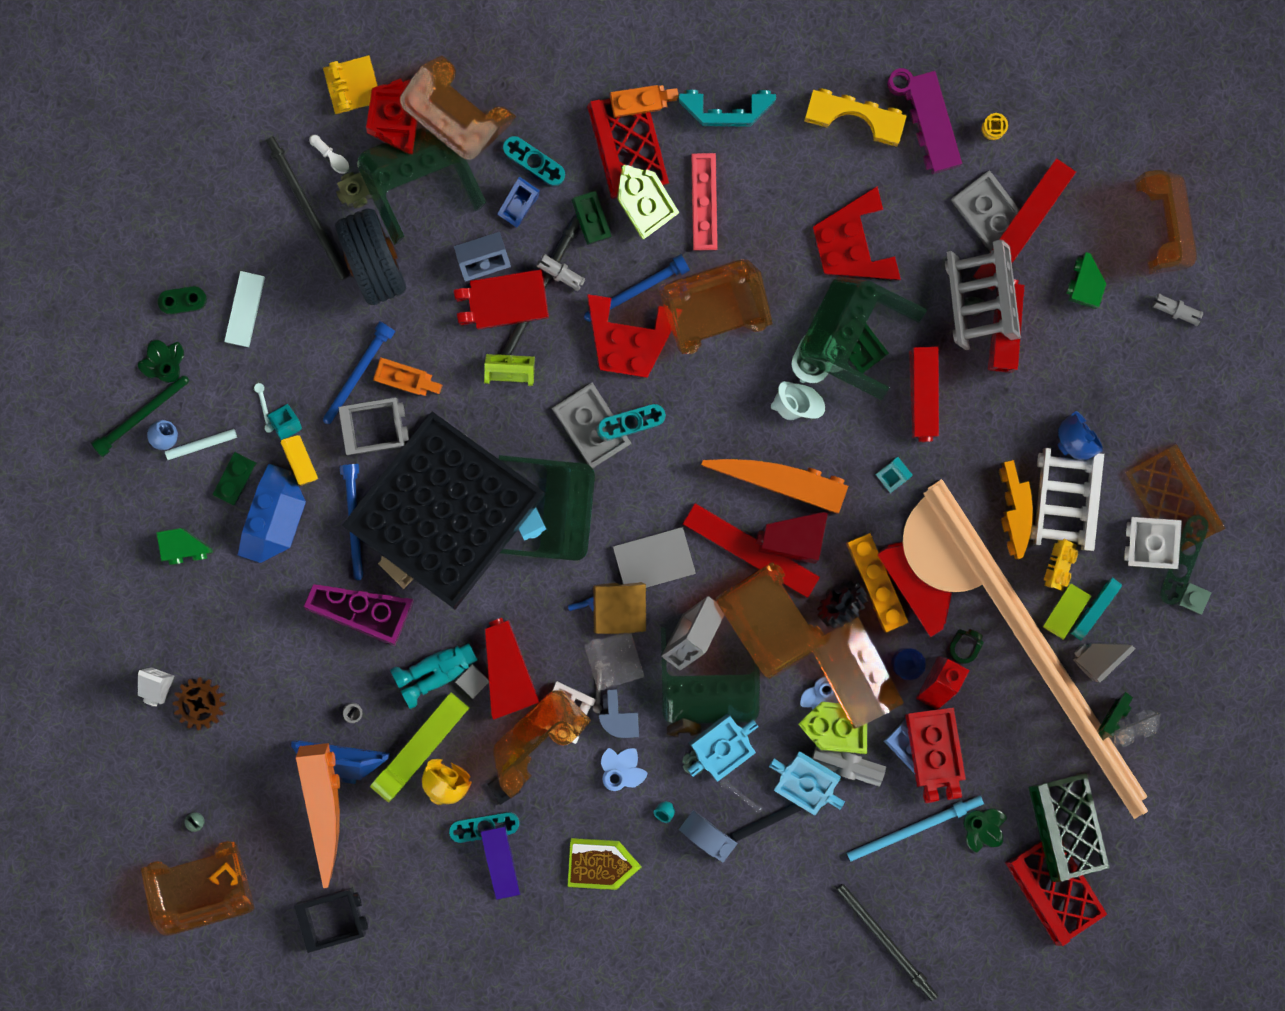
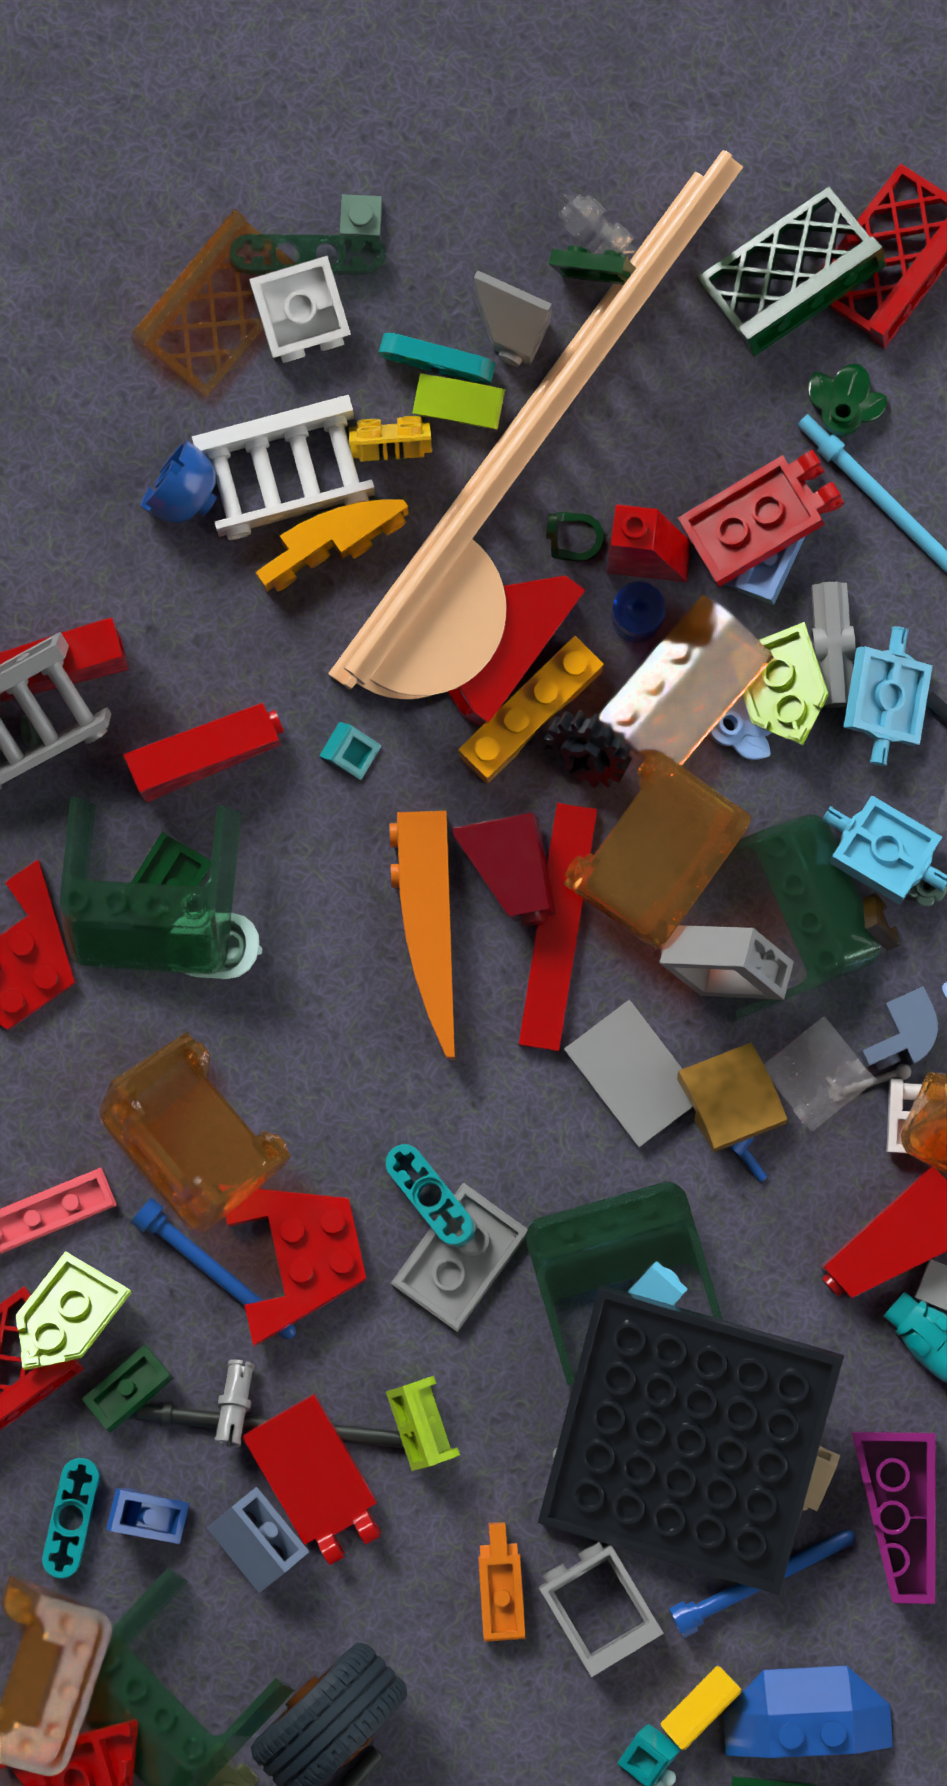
camera: 105 degrees left, 5 degrees down
(382, 334) = (444, 1653): blue piece -> none
(798, 401) = (294, 944): light aqua piece -> none

